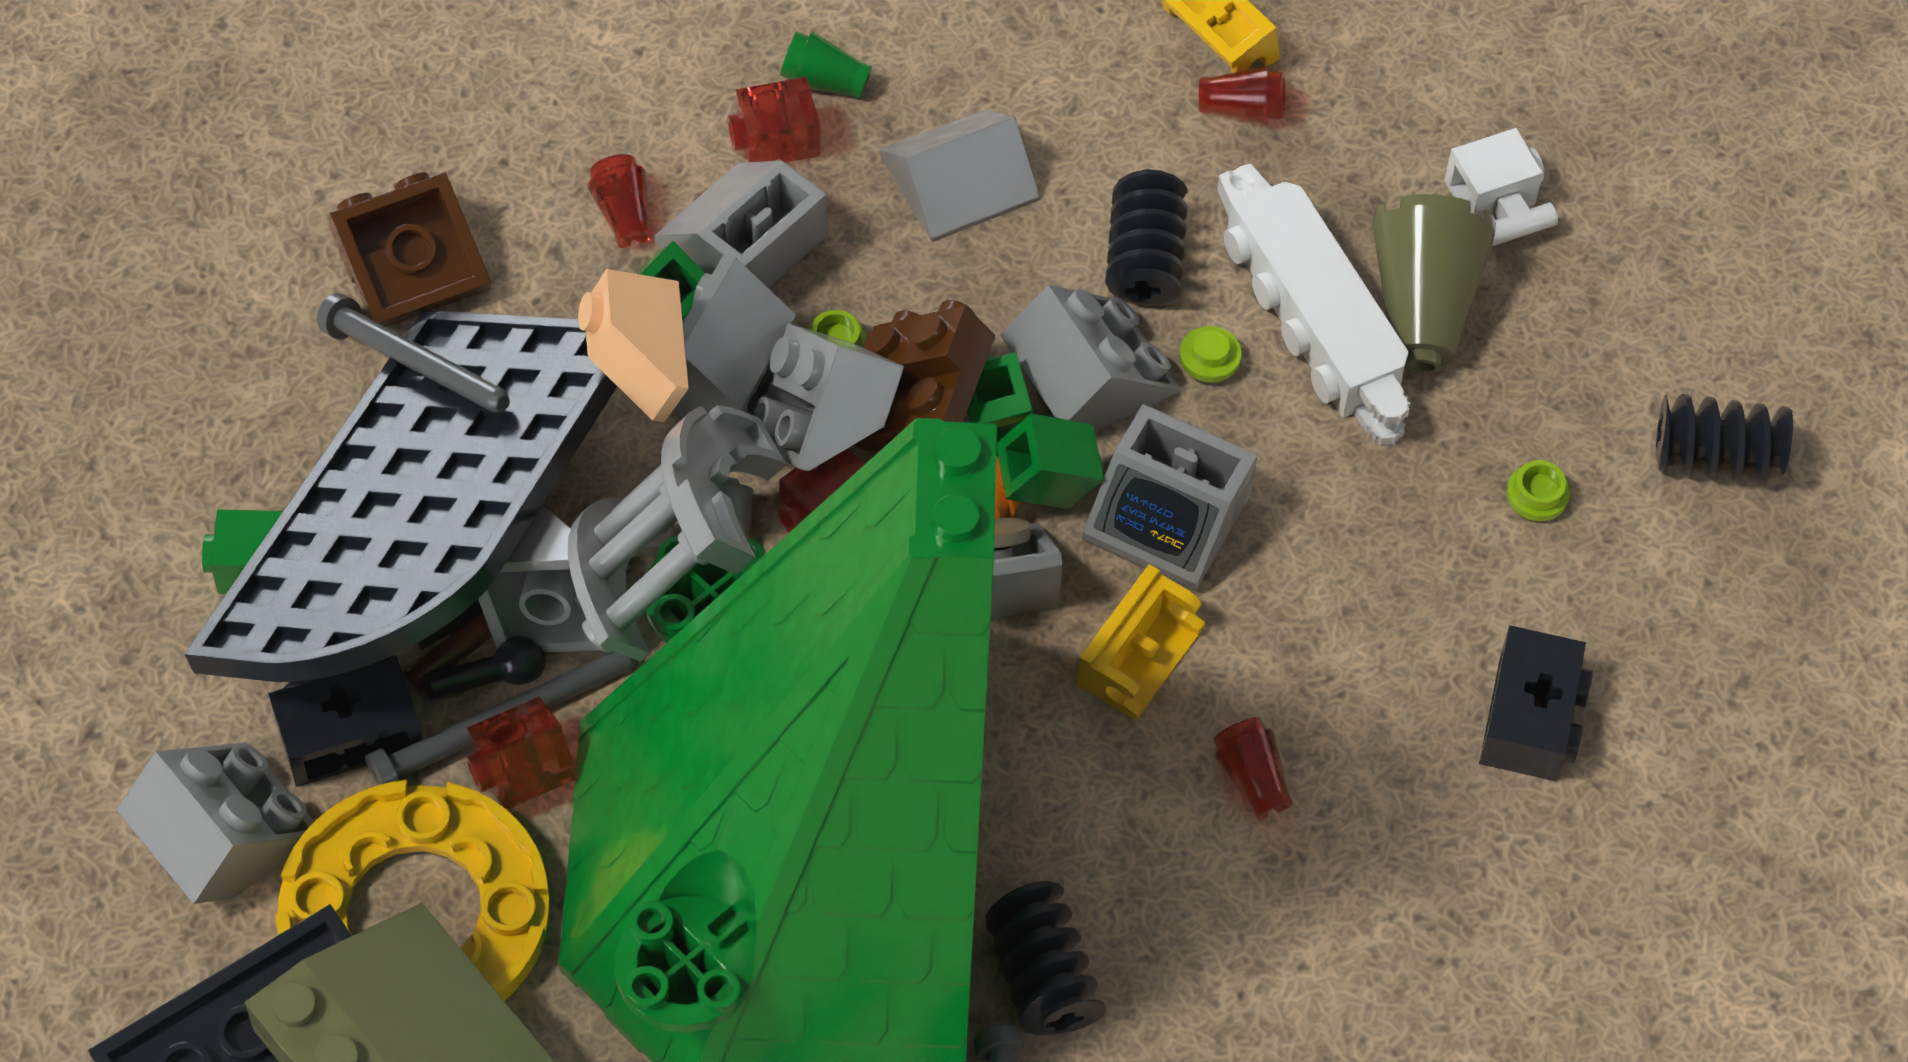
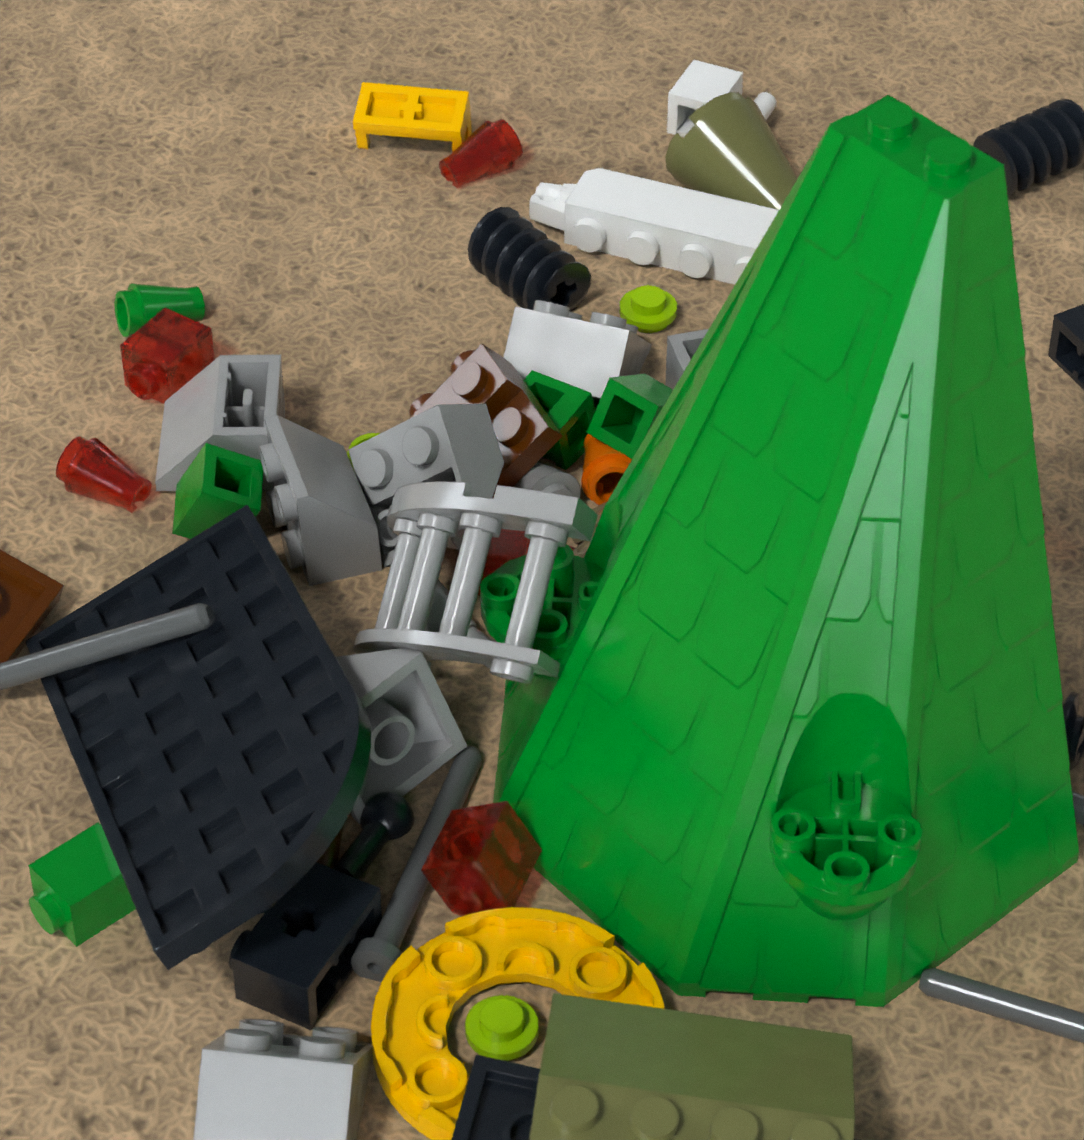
camera: 40 degrees left, 15 degrees down
(407, 886) = (501, 1027): none -> lime plate
(638, 338) = (278, 499): light nougat slope -> none
(963, 172) = (338, 308): light grey slope -> none

